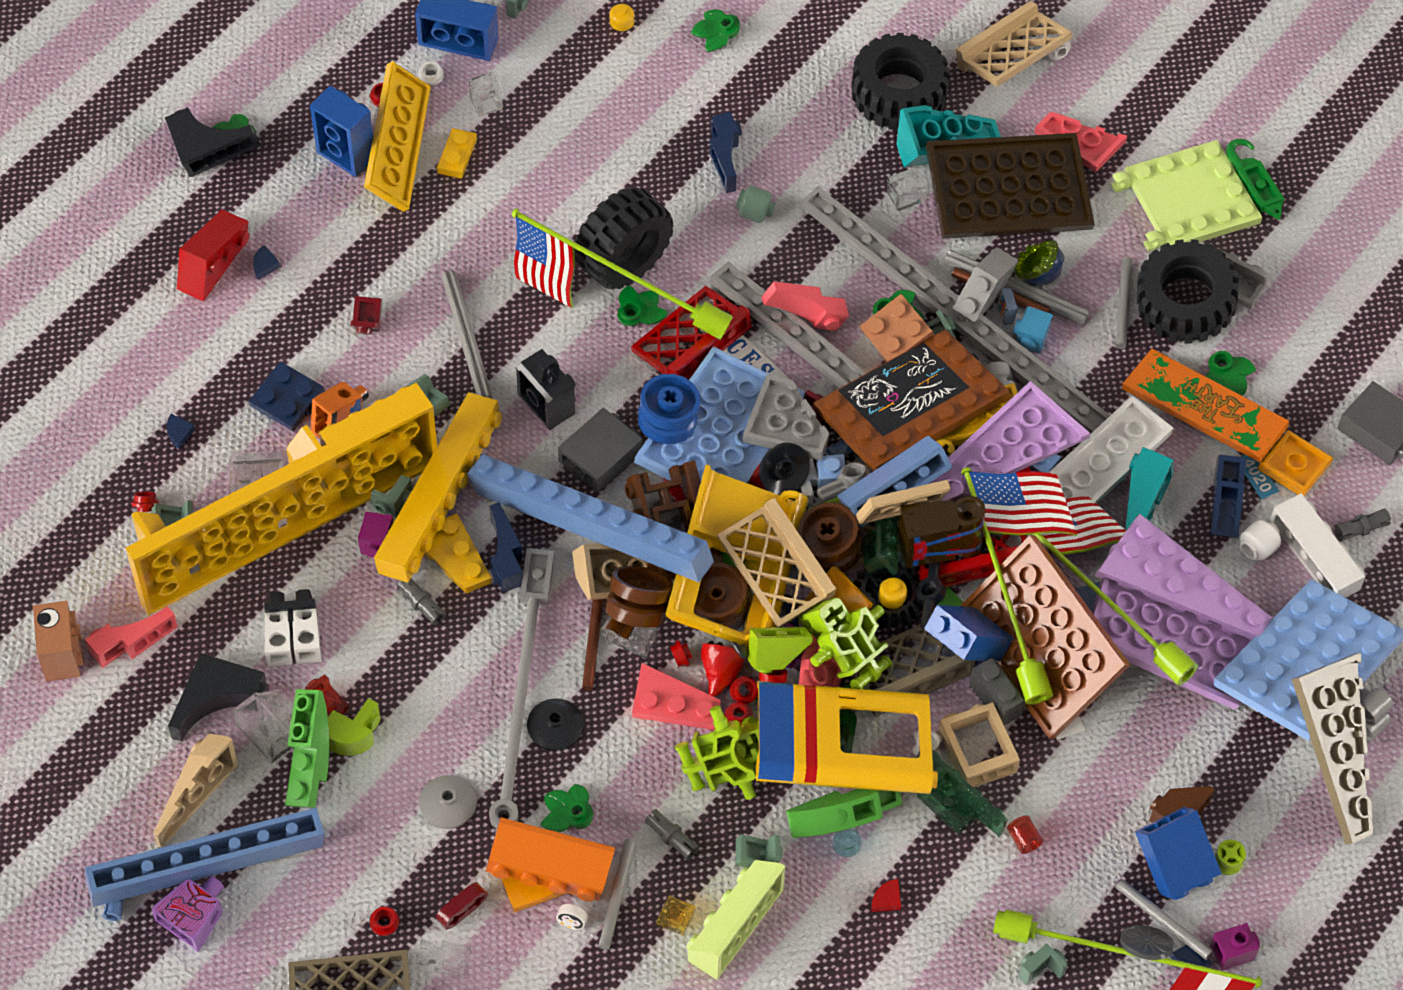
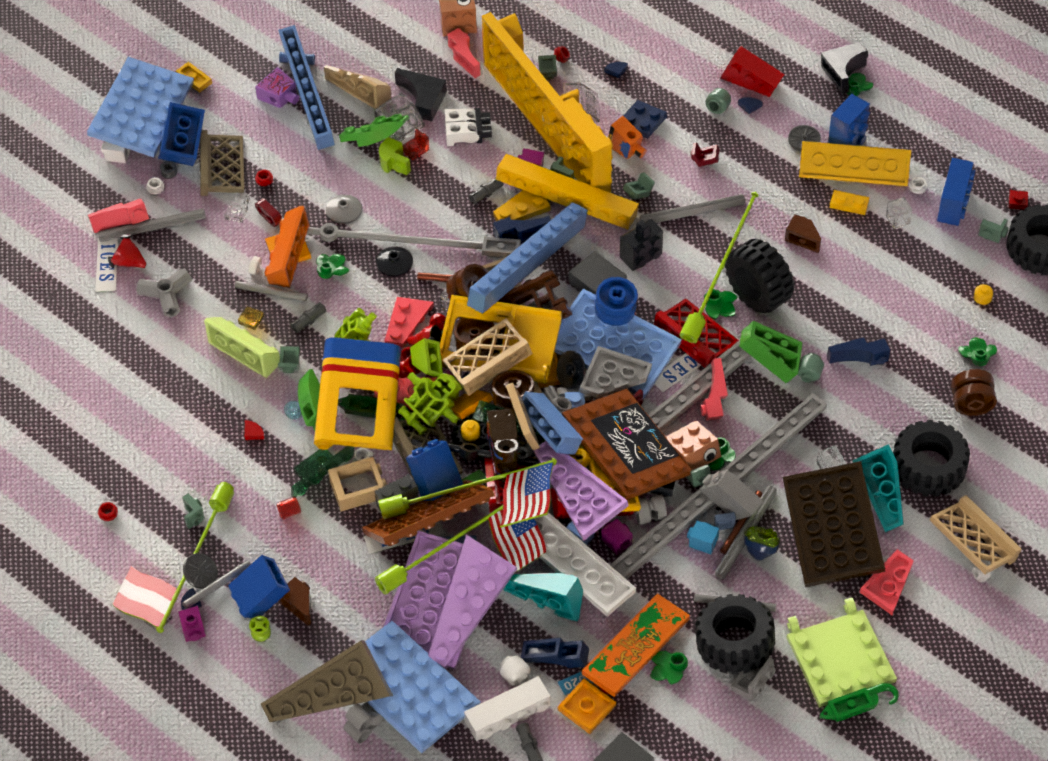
camera: 95 degrees right, 5 degrees down
(261, 297) = (718, 101): none -> sand green head
(334, 199) = (802, 133): none -> dark grey wheel
(523, 196) = (803, 233): none -> reddish brown slope
(741, 236) = (772, 349): none -> bright green wedge
(801, 28) = (973, 392): none -> reddish brown wheel

